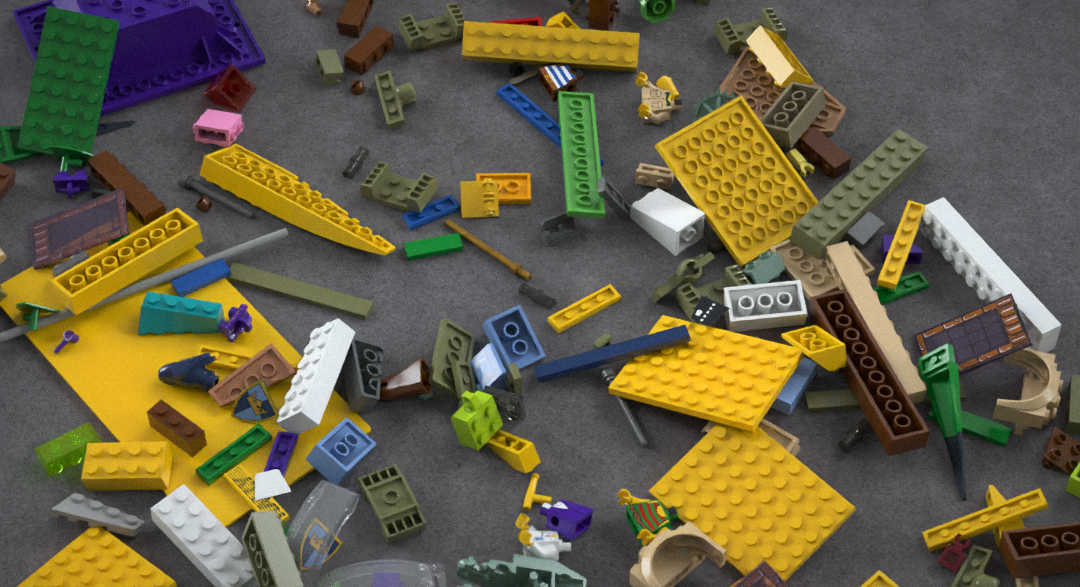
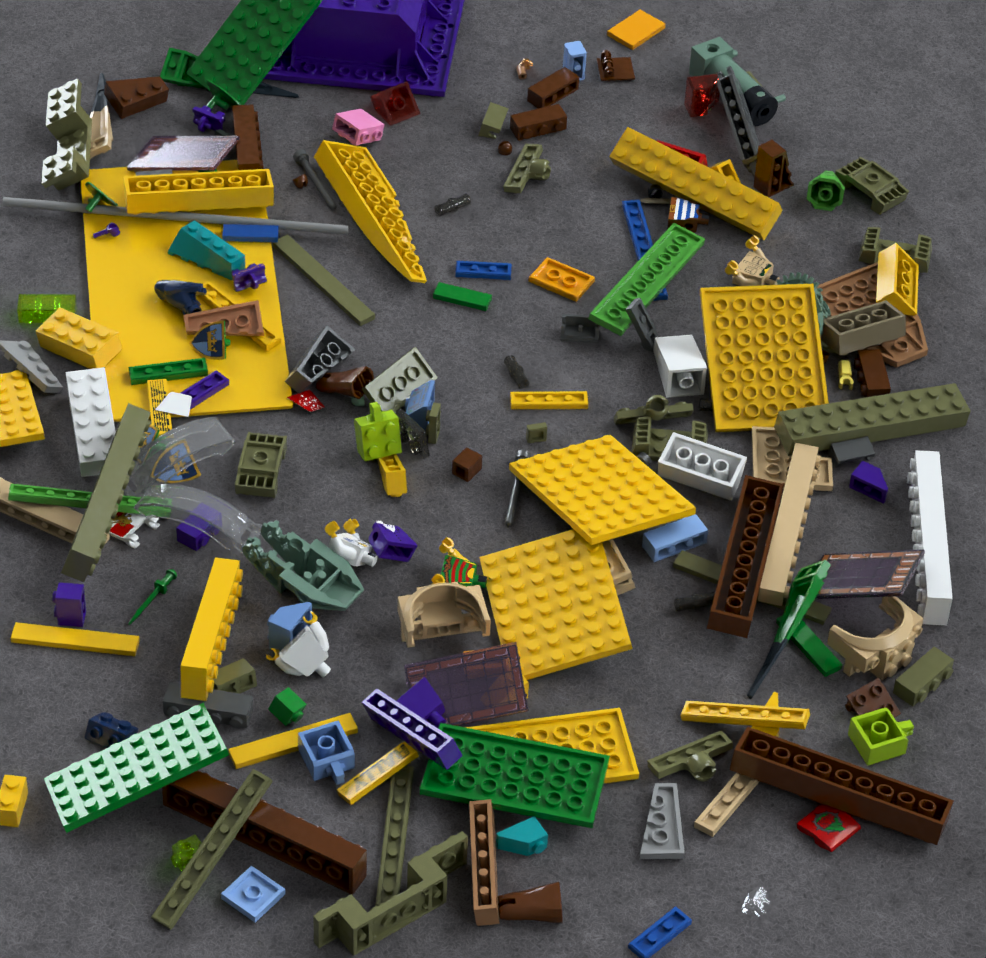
camera: 30 degrees right, 5 degrees down
(177, 428) = (137, 330): reddish brown brick -> none
(315, 377) = (273, 340): white brick -> none
(340, 451) = (251, 407): medium blue slope -> none
(380, 418) = (307, 401): none -> red sticker
(398, 191) = (467, 239): olive plate -> none
(432, 31) = (606, 131): olive plate -> none
(463, 379) = (396, 398): olive hinge -> none
(479, 198) = (531, 276): yellow hinge -> none
(514, 267) = (516, 341): pearl gold bar -> none
(514, 338) = (466, 392): medium blue slope -> none
(532, 497) = (380, 514): yellow piece -> none
(569, 407) = (467, 464): none -> reddish brown brick
(612, 353) = (536, 440): dark blue tile -> none
(654, 176) = (693, 324): tan bracket -> none
(667, 84) = (779, 261): yellow cone -> none
(708, 311) = (645, 445): black sticker -> none
(765, 268) = (731, 439): sand green brick -> none
(818, 346) = (714, 515): yellow slope -> none
(901, 245) = (868, 476): yellow tile -> none
(906, 286) = (845, 512): green tile -> none
(952, 556) = (695, 729): dark red plate -> none

